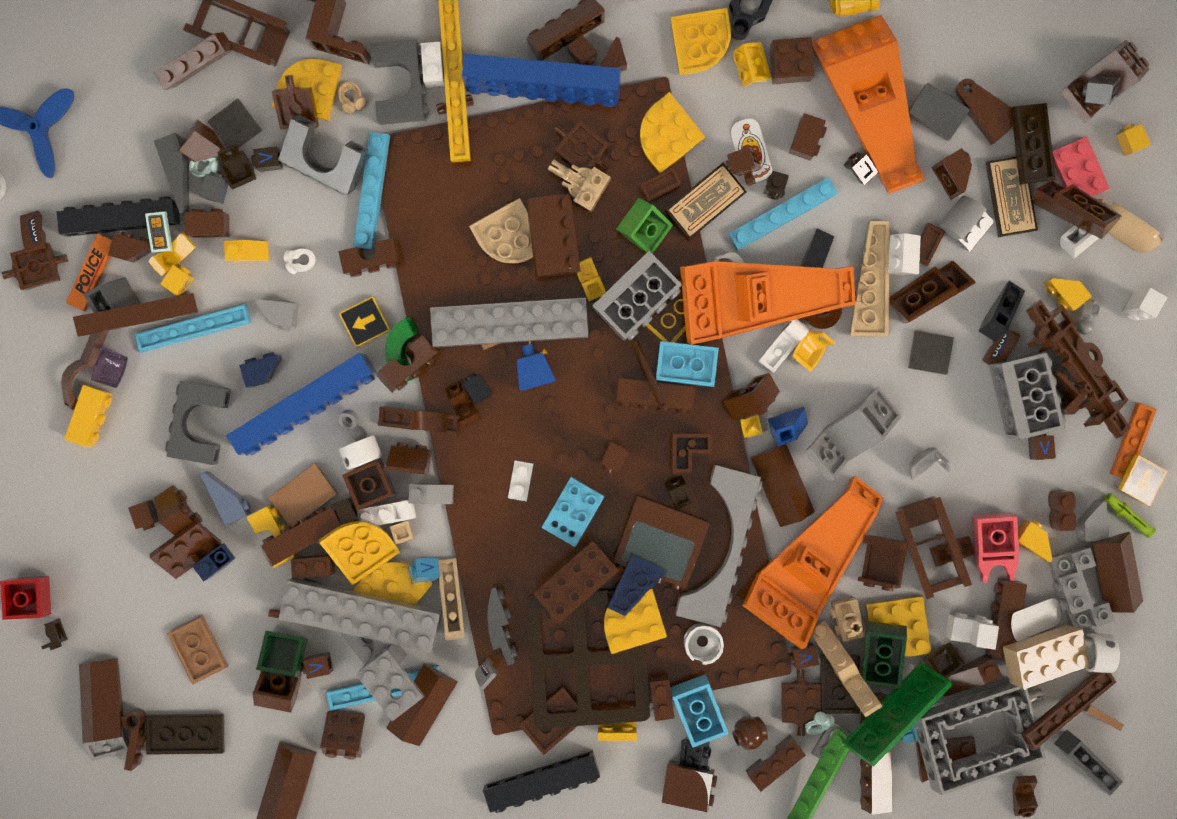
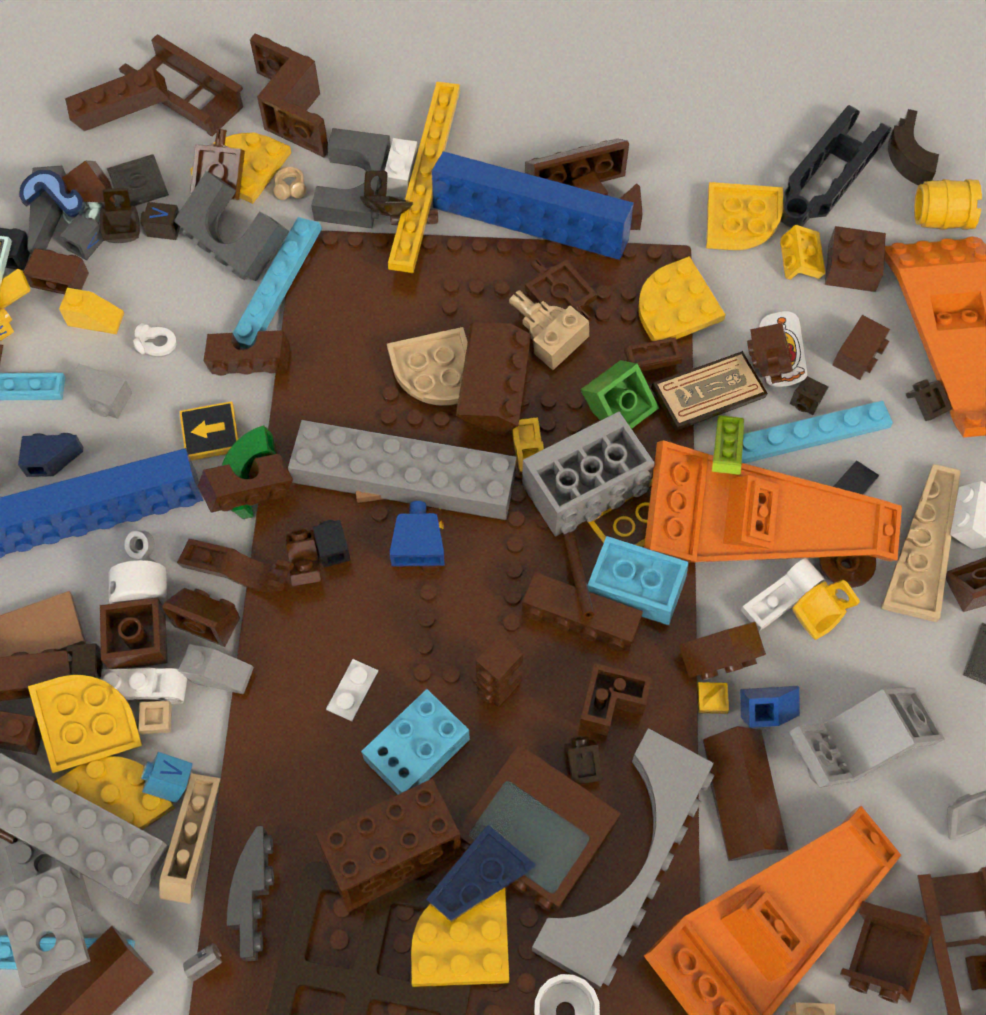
camera: 10 degrees right, 25 degrees down
(180, 159) = (54, 185): none -> dark blue animal
(430, 105) = (380, 202): none -> dark brown piece
(728, 248) = (728, 445): none -> lime tile

